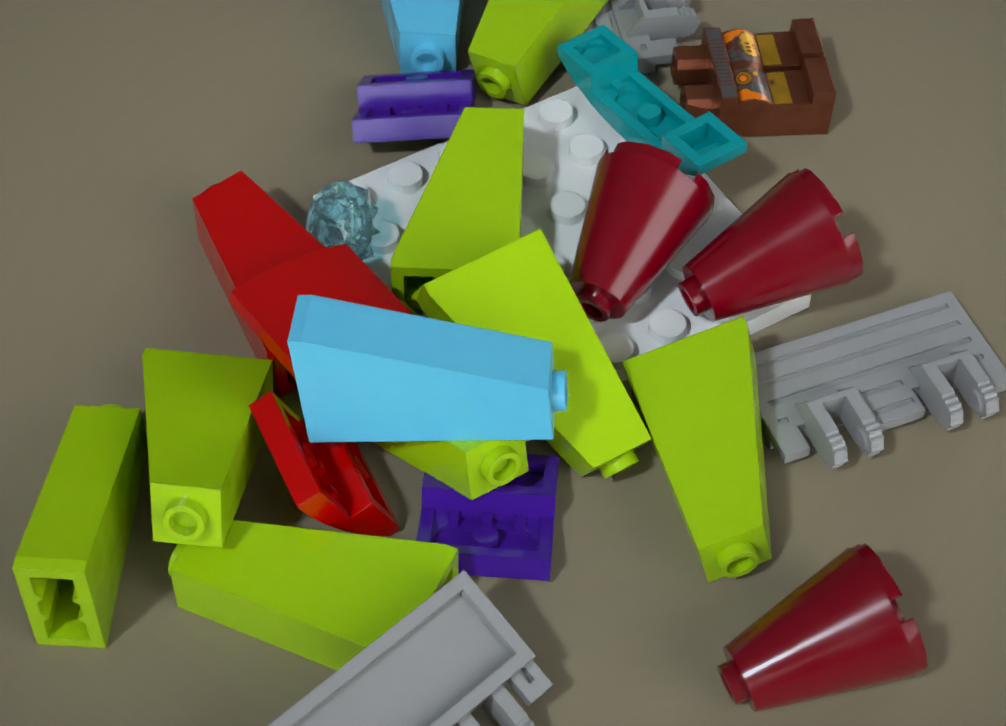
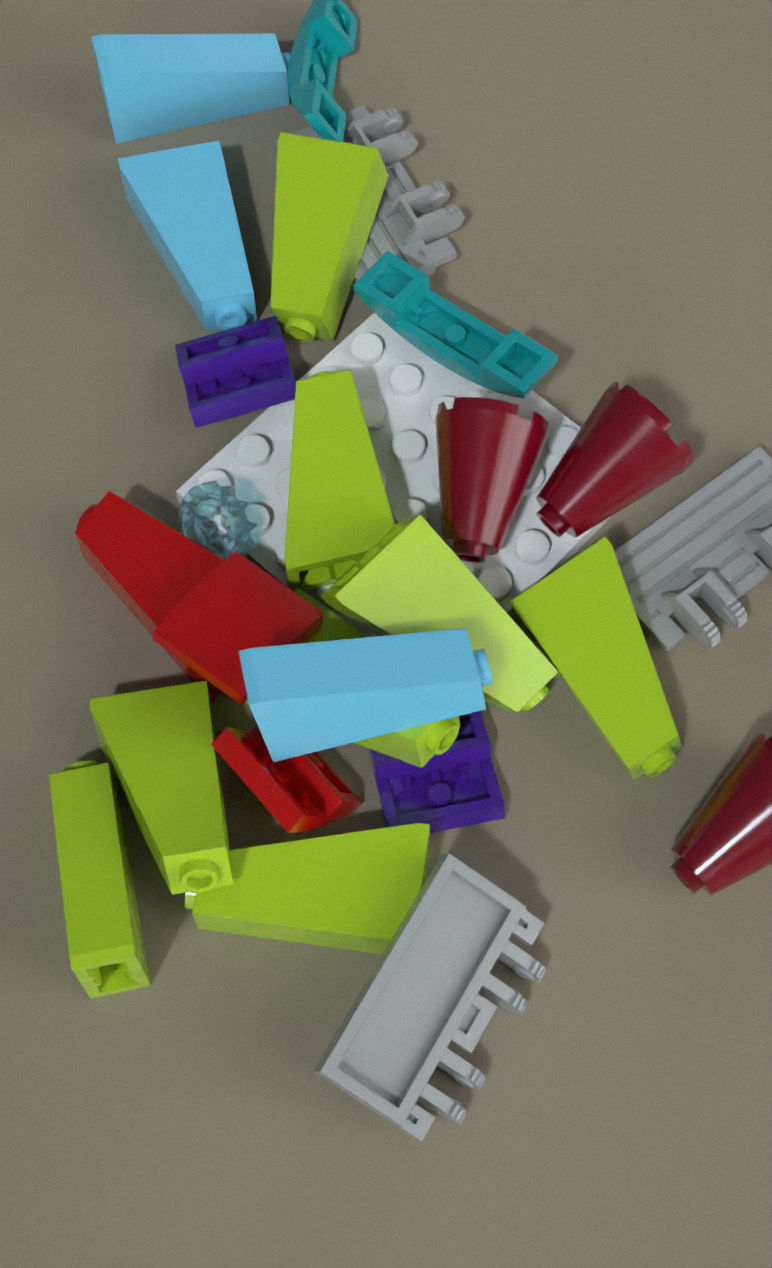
camera: 15 degrees left, 15 degrees up
(758, 80) = (534, 267): copper hips -> none

